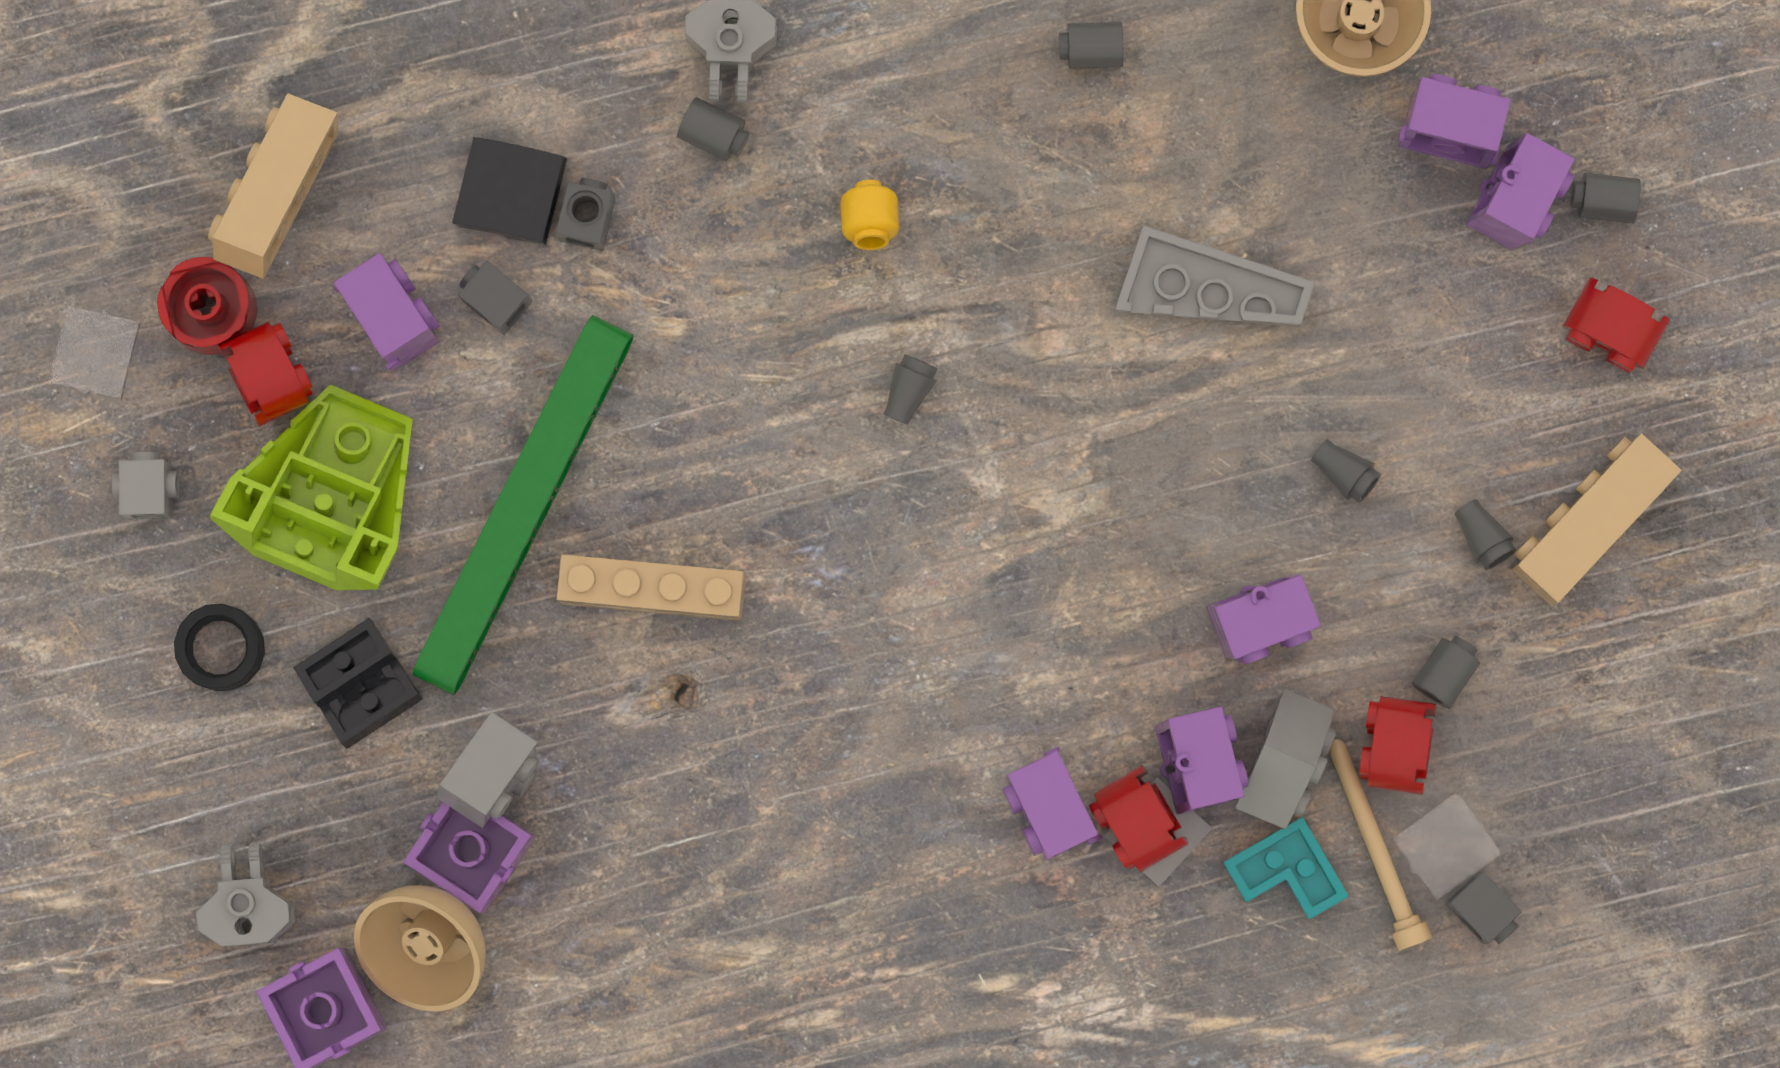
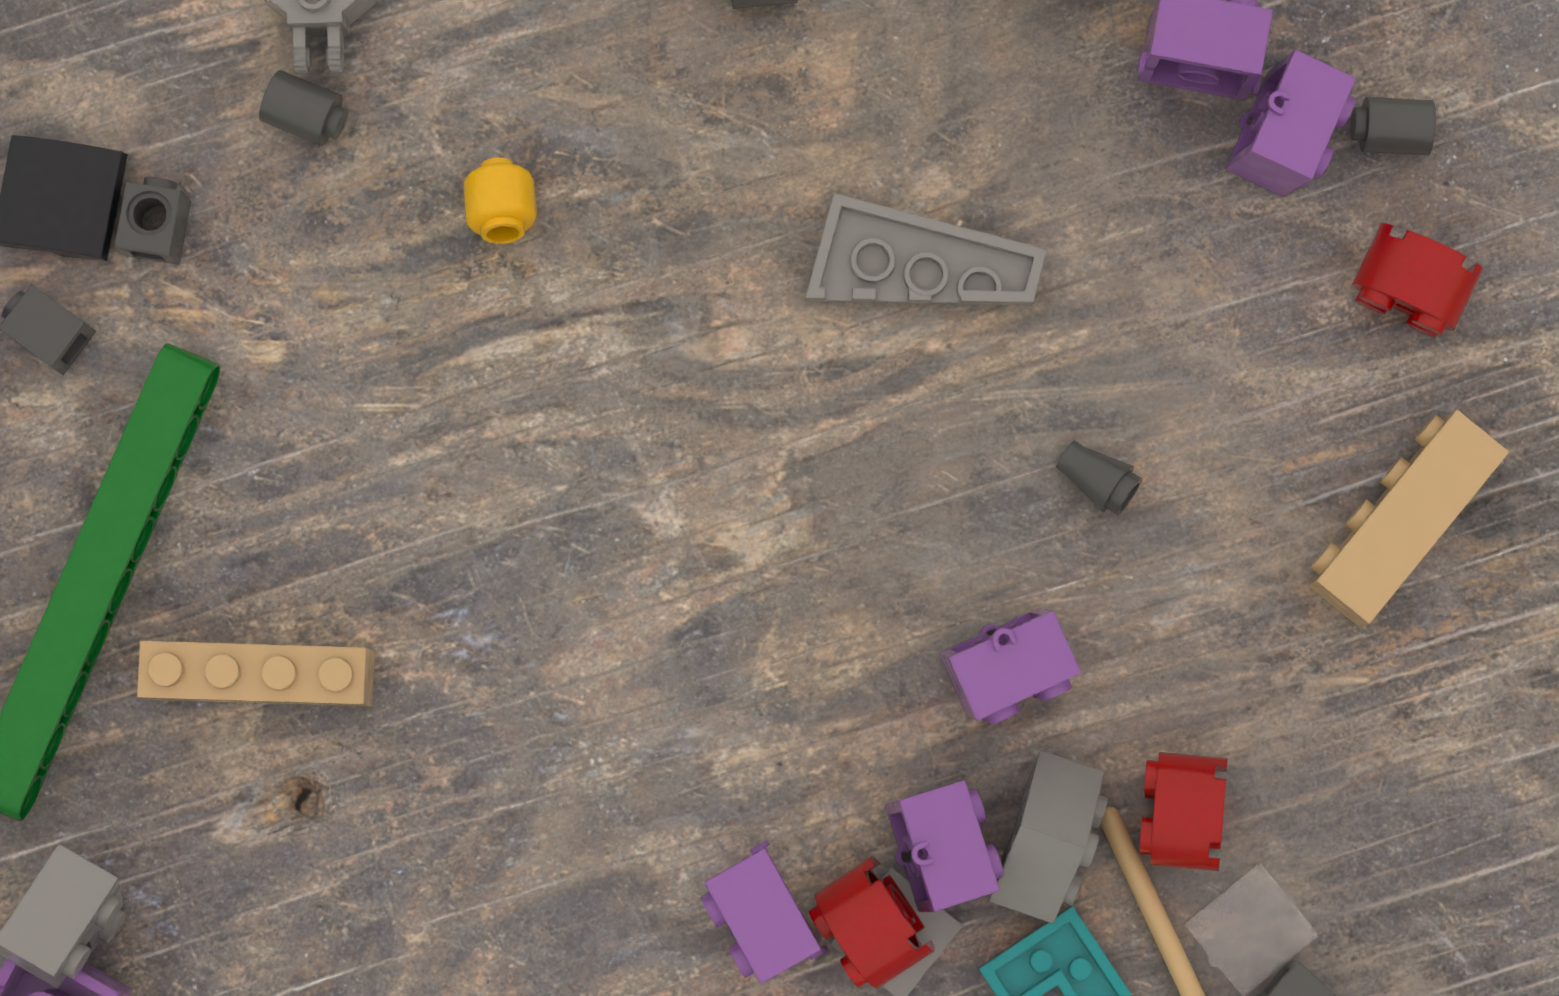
camera: 10 degrees left, 0 degrees up
(909, 387) = (560, 408): dark grey cone -> none
(1447, 671) = (1238, 715): dark grey brick -> none
(1484, 535) = (1273, 546): dark grey cone -> none

